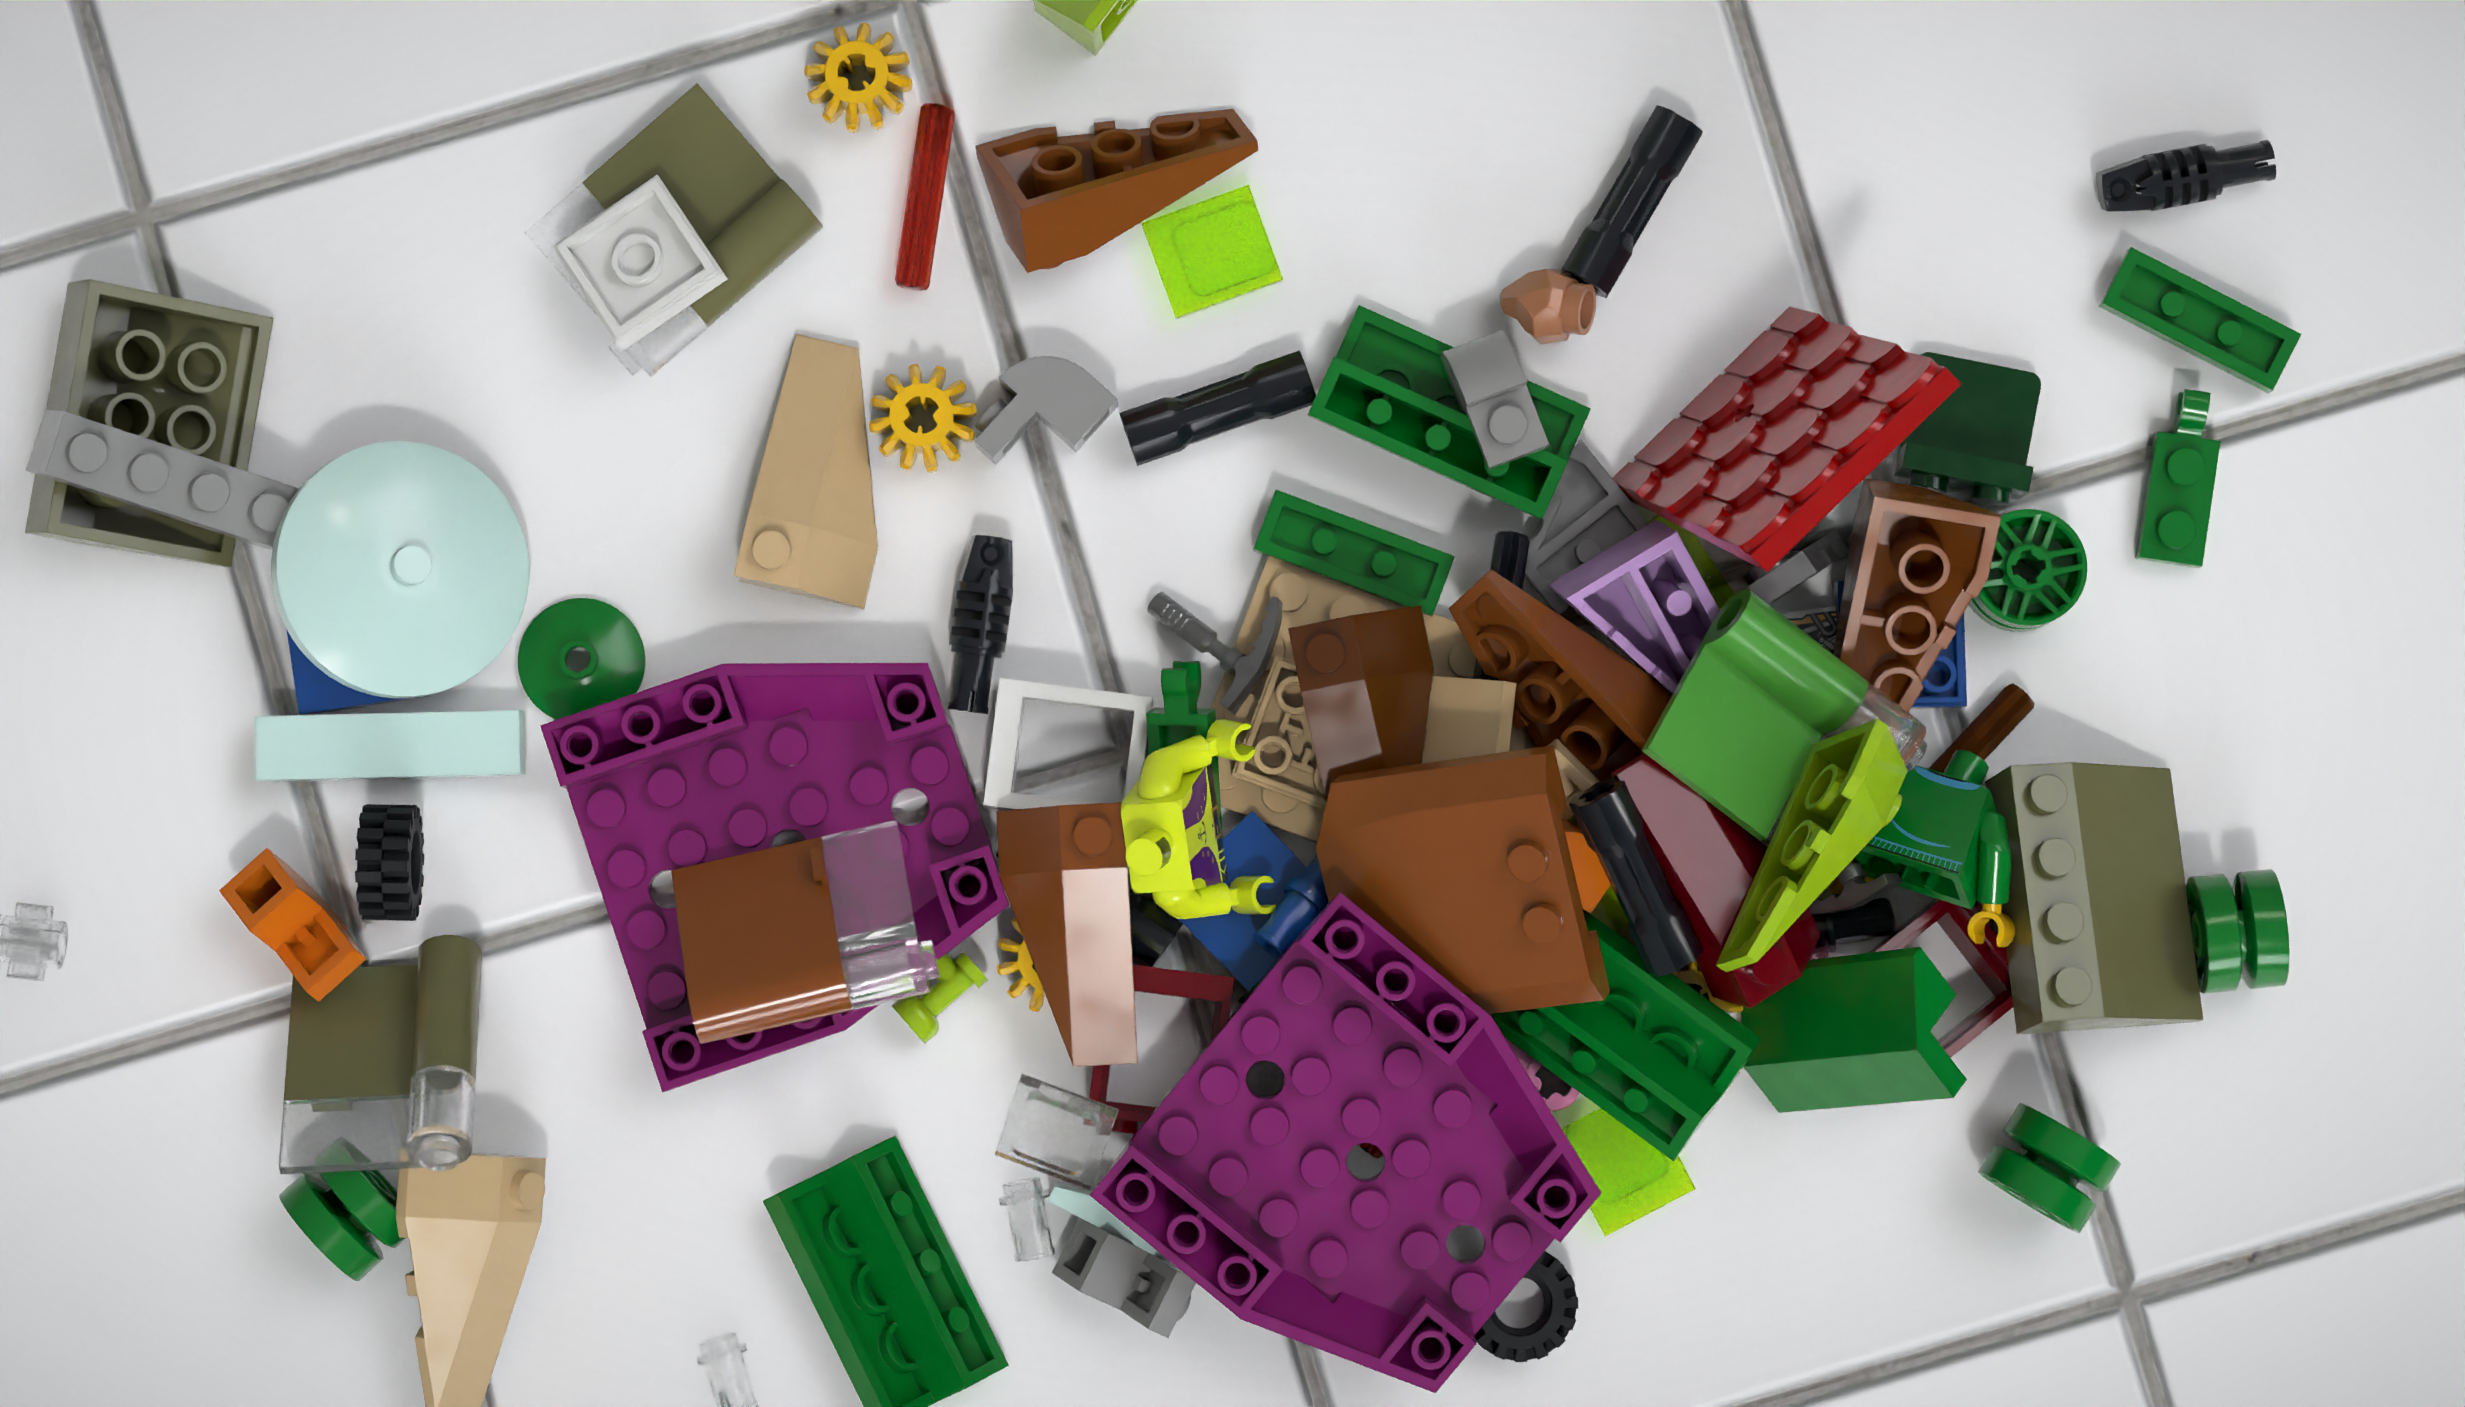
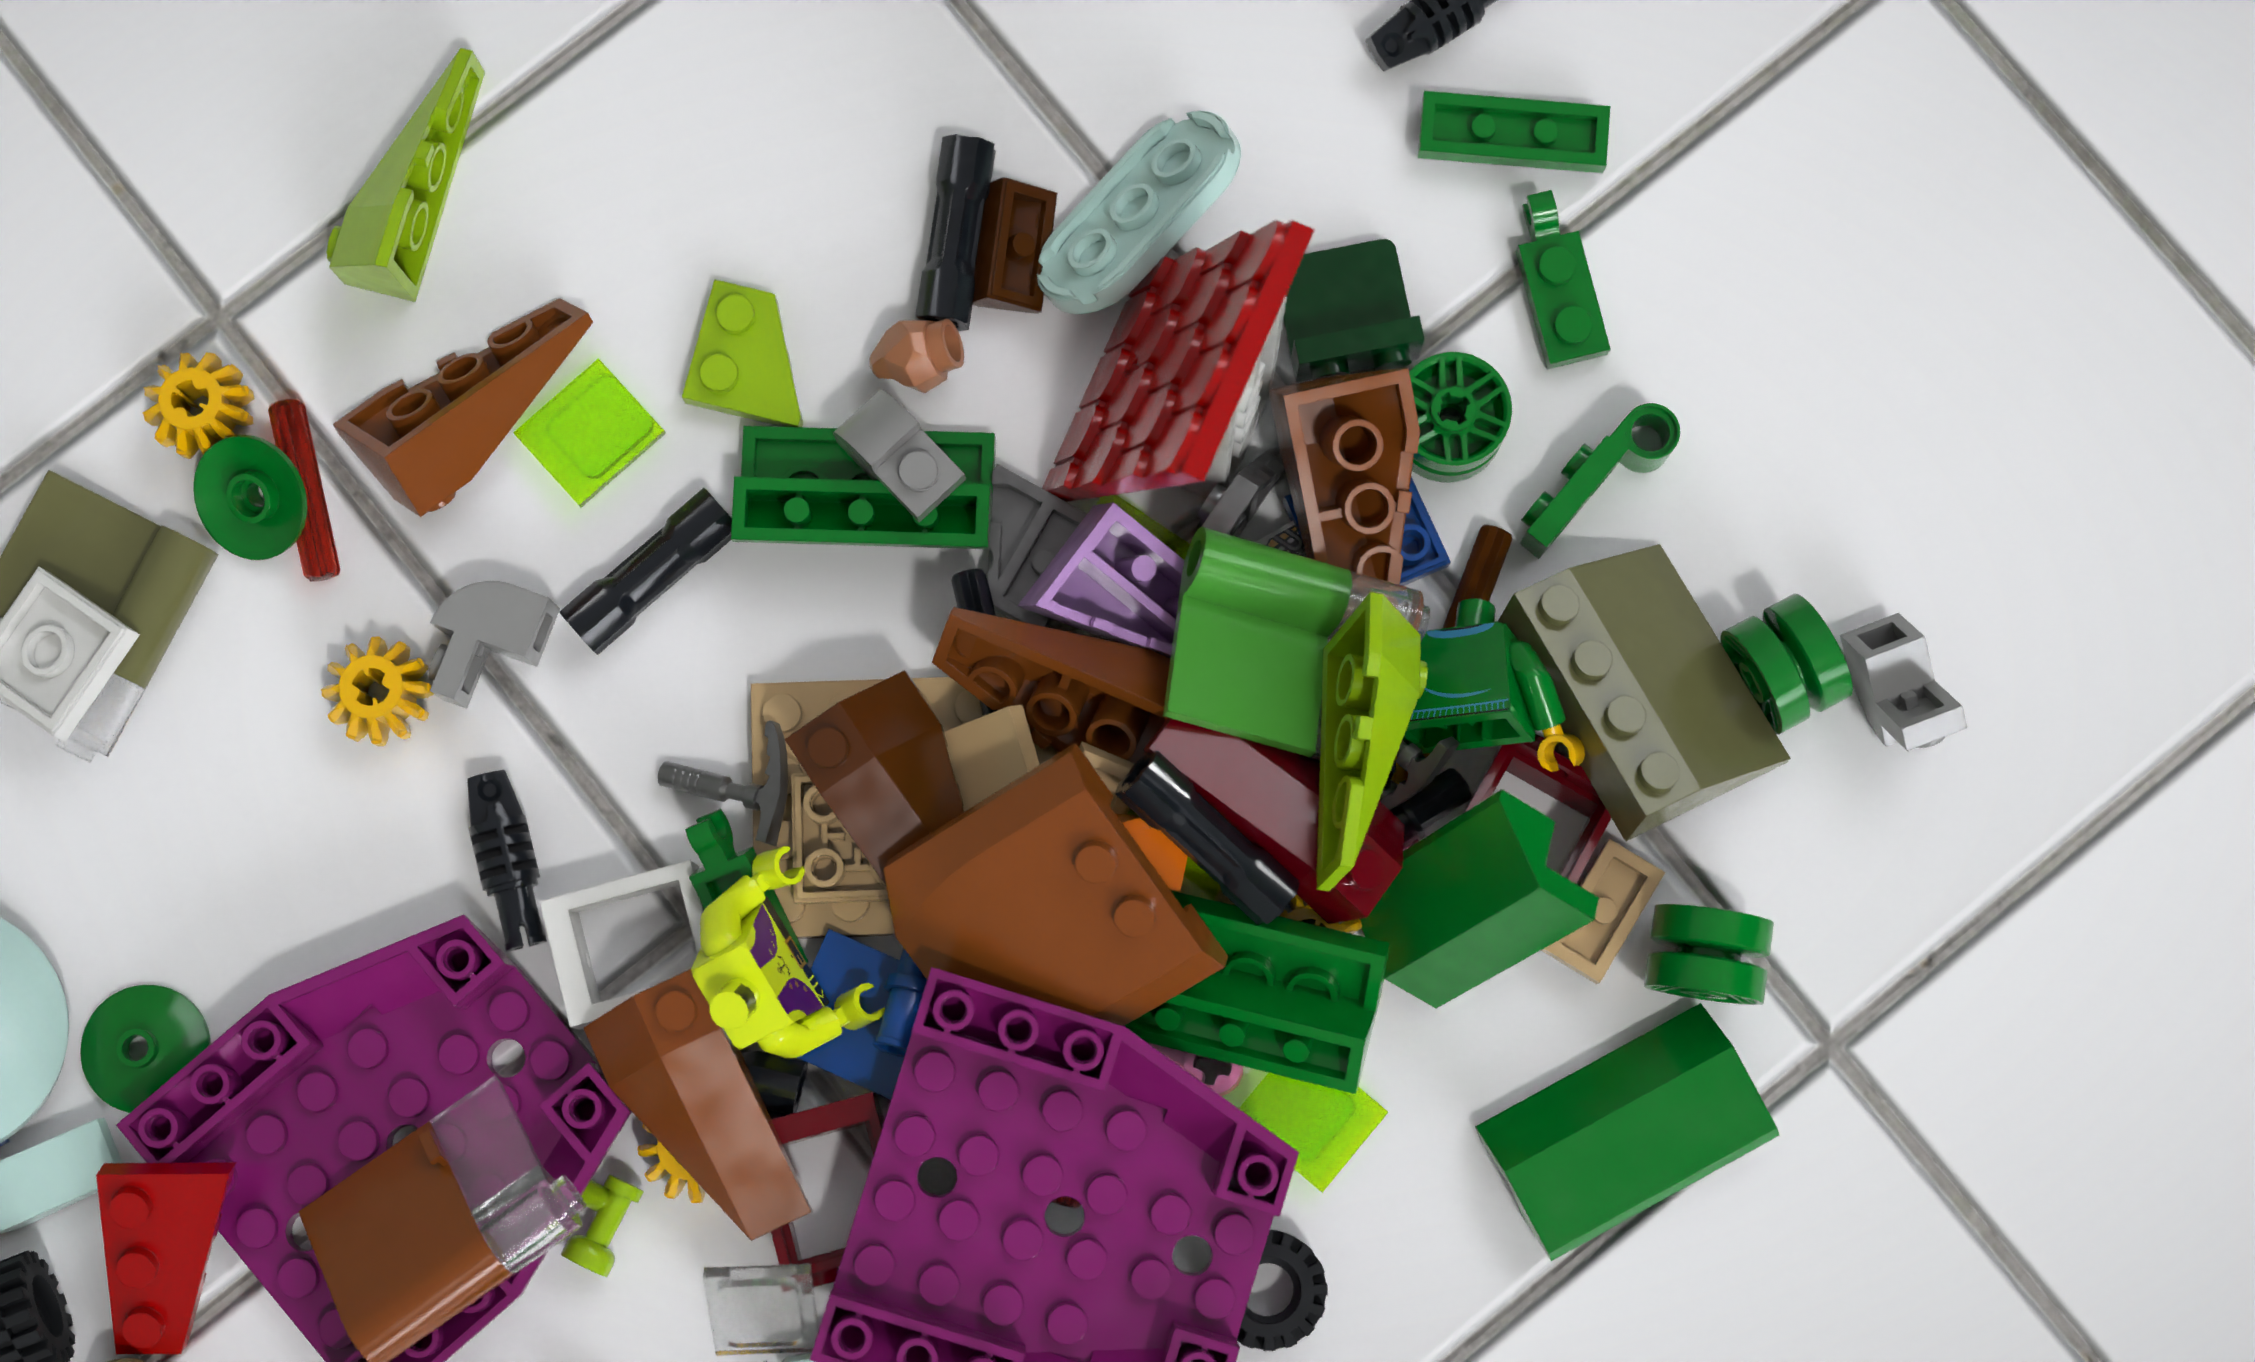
camera: 20 degrees left, 5 degrees down
(535, 850) = (157, 1247): none -> red wing
(813, 495) = (300, 803): tan wedge -> none
(853, 191) = (231, 502): none -> green dish
(1353, 552) = (827, 651): green plate -> none
(1384, 239) = (743, 359): none -> lime wing
(1681, 236) = (1012, 235): none -> reddish brown slope
(1812, 255) = (1138, 212): none -> light aqua tile
(1907, 1296) = (1627, 1131): none -> green slope
(1994, 1074) = (1623, 888): none -> tan plate
(2134, 672) = (1591, 468): none -> green plate
(2333, 993) = (1898, 684): none -> light grey brick

